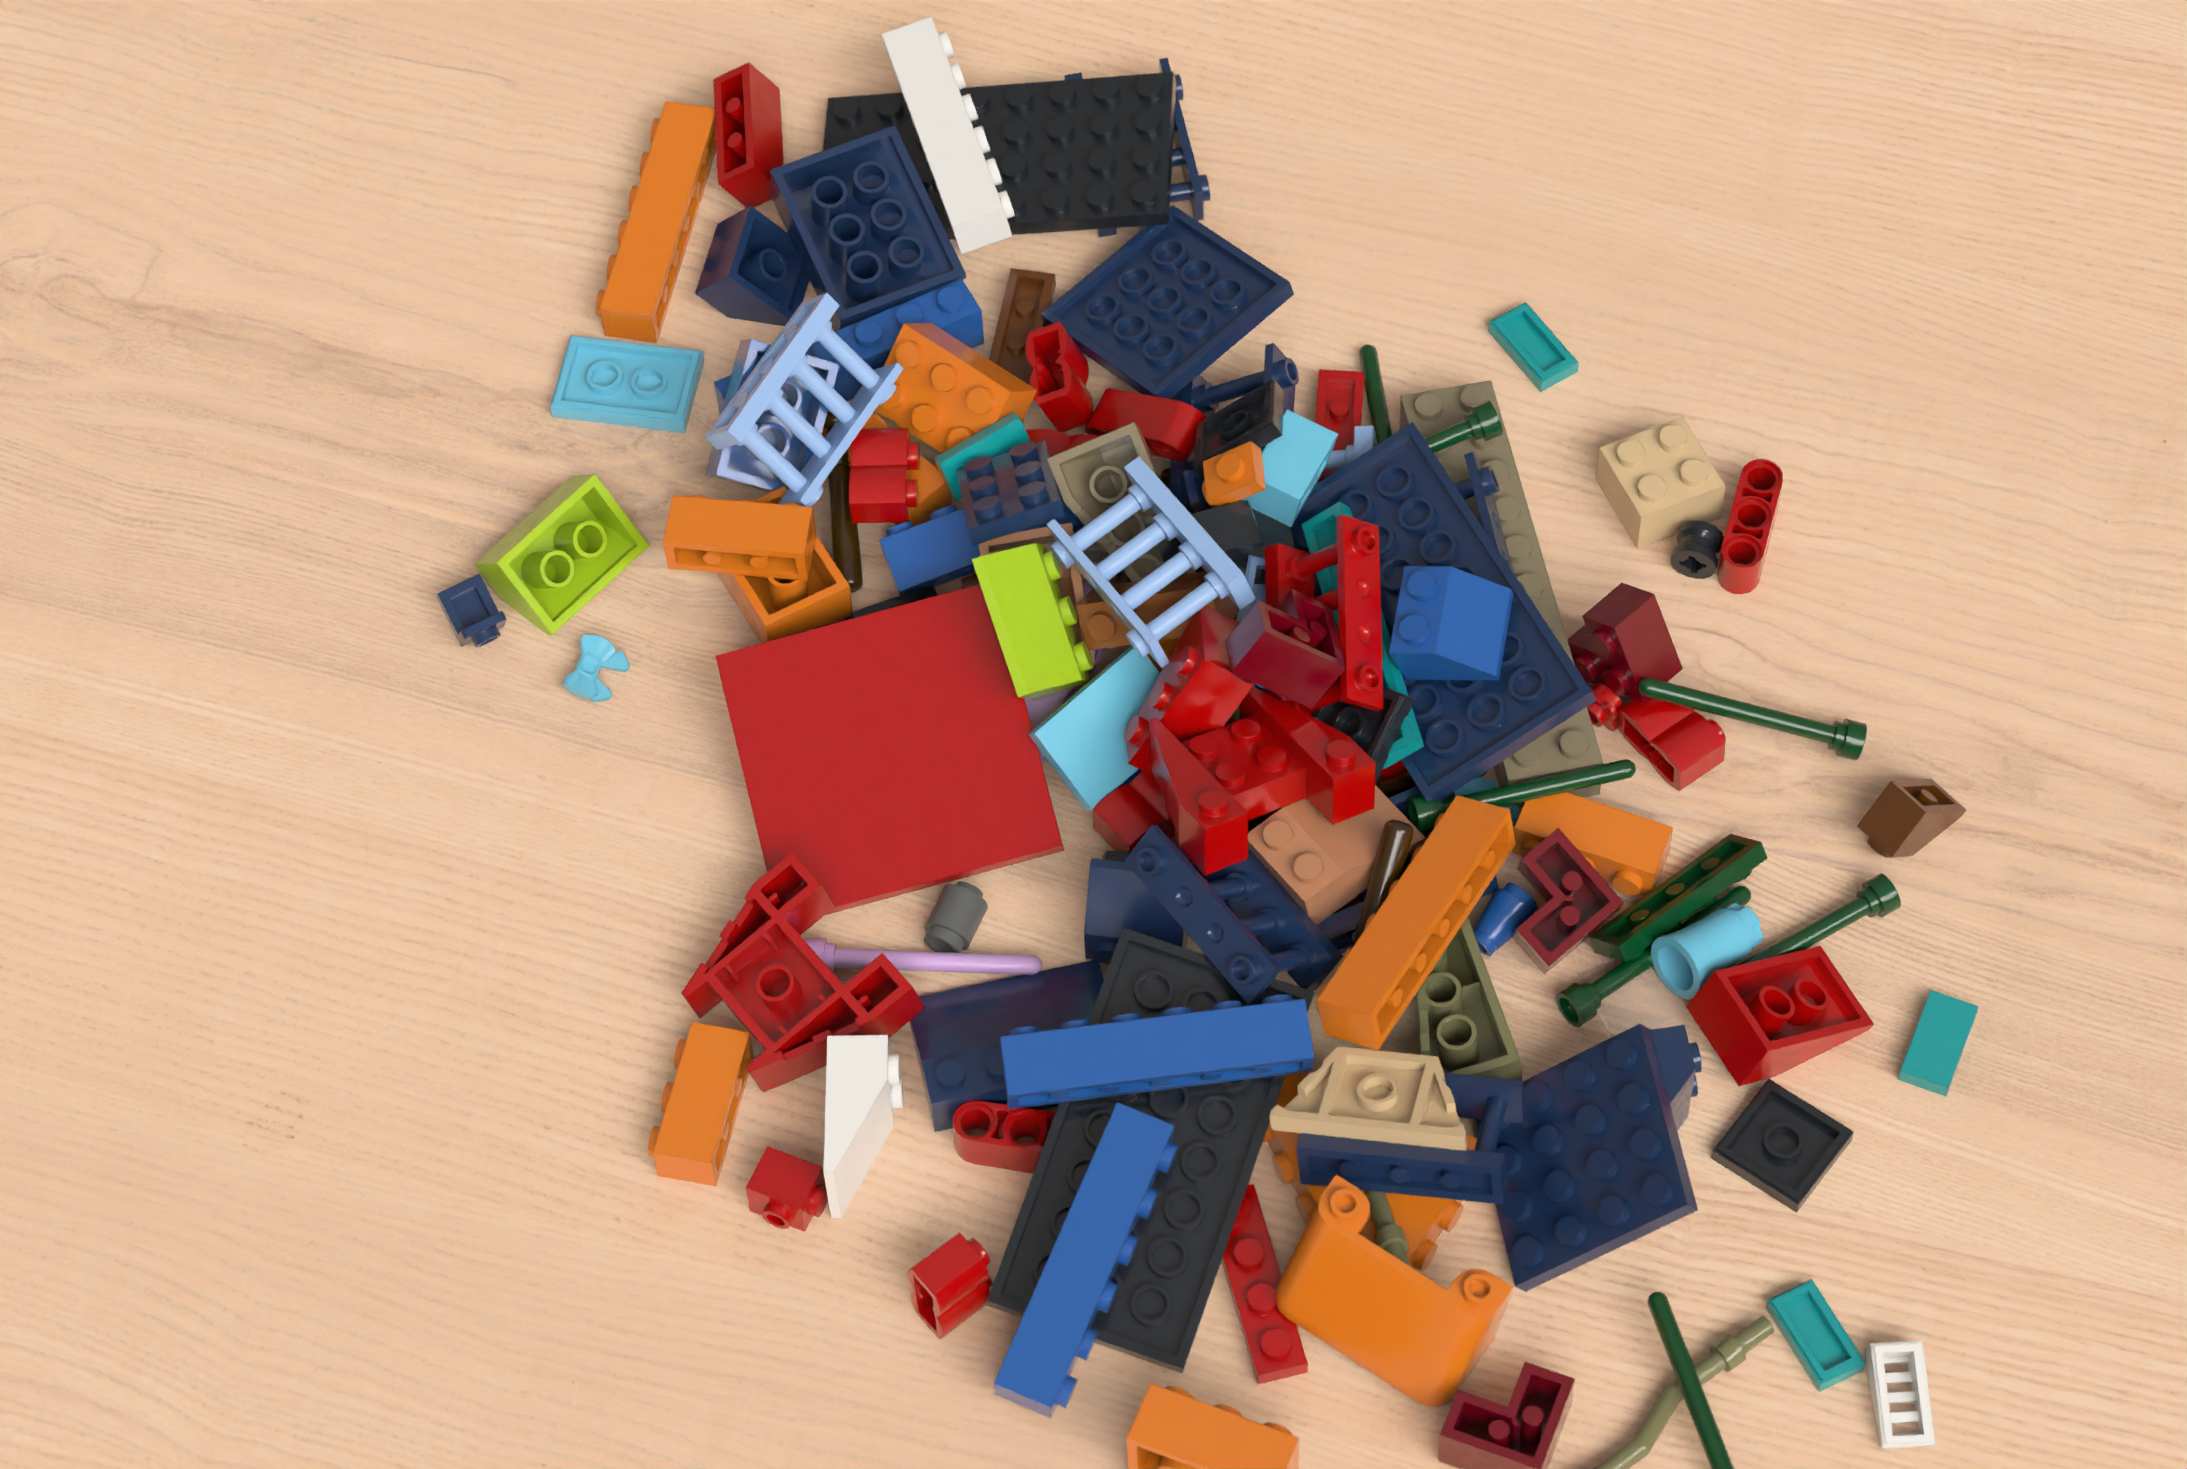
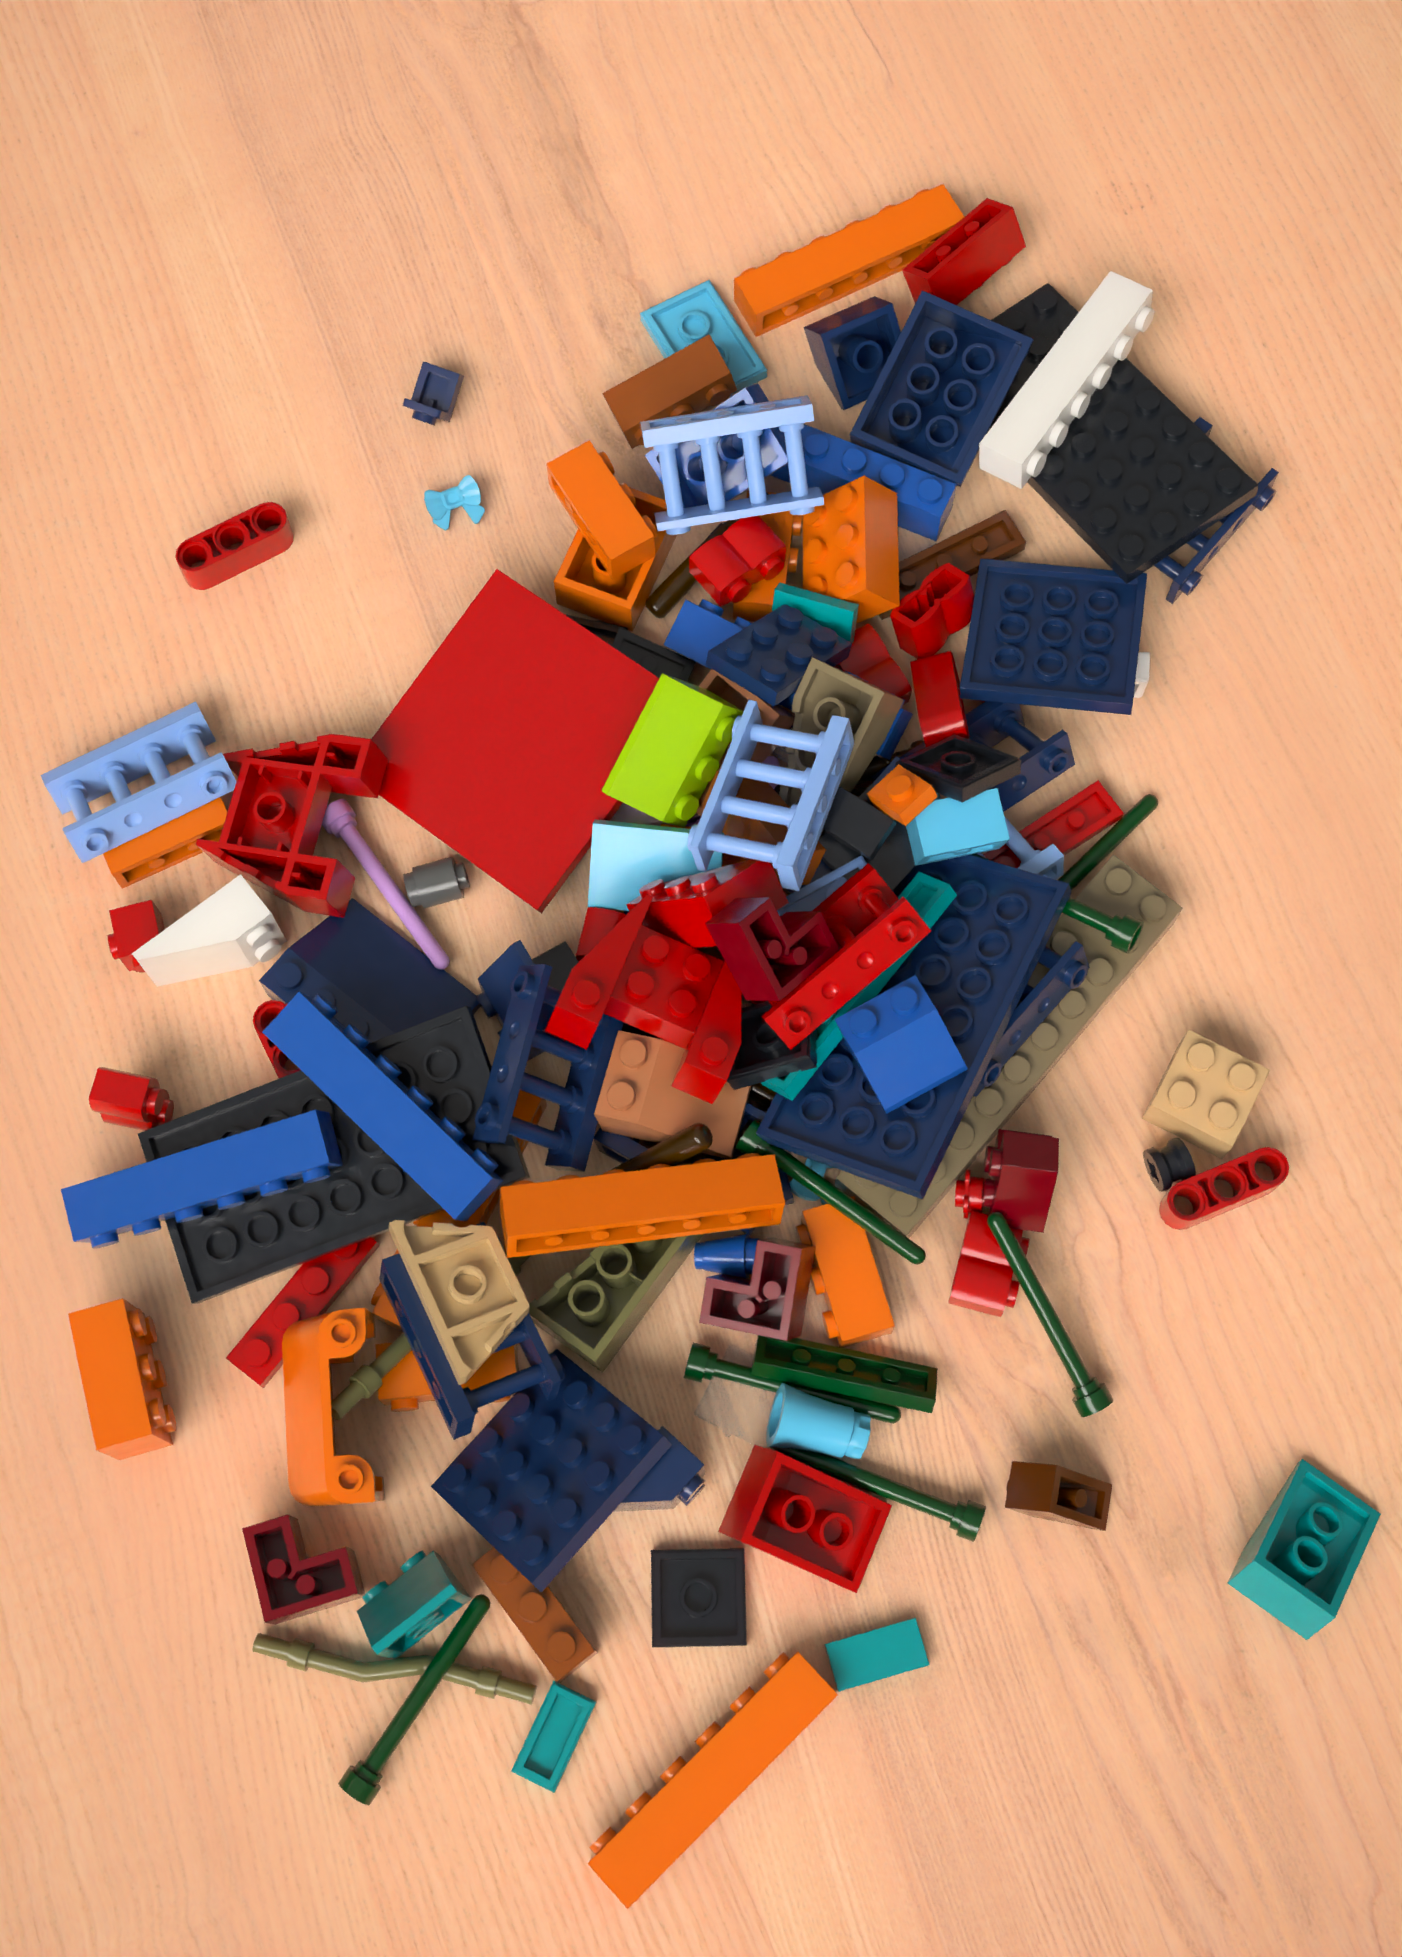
camera: 50 degrees right, 15 degrees up
(471, 885) = (226, 563): none -> red beam
(562, 553) = (524, 411): lime slope -> none
(603, 1073) = (128, 759): none -> light blue fence
(660, 430) = (671, 388): none -> dark orange brick
(1533, 347) = (1257, 913): teal tile -> none
(1616, 1348) = (412, 1605): none -> teal slope
(1697, 1267) = (537, 1616): none -> dark orange brick
(1893, 1353) = (577, 1807): white slope -> none
(1948, 1230) = (711, 1779): none -> orange brick
(2098, 678) = (1305, 1551): none -> teal slope

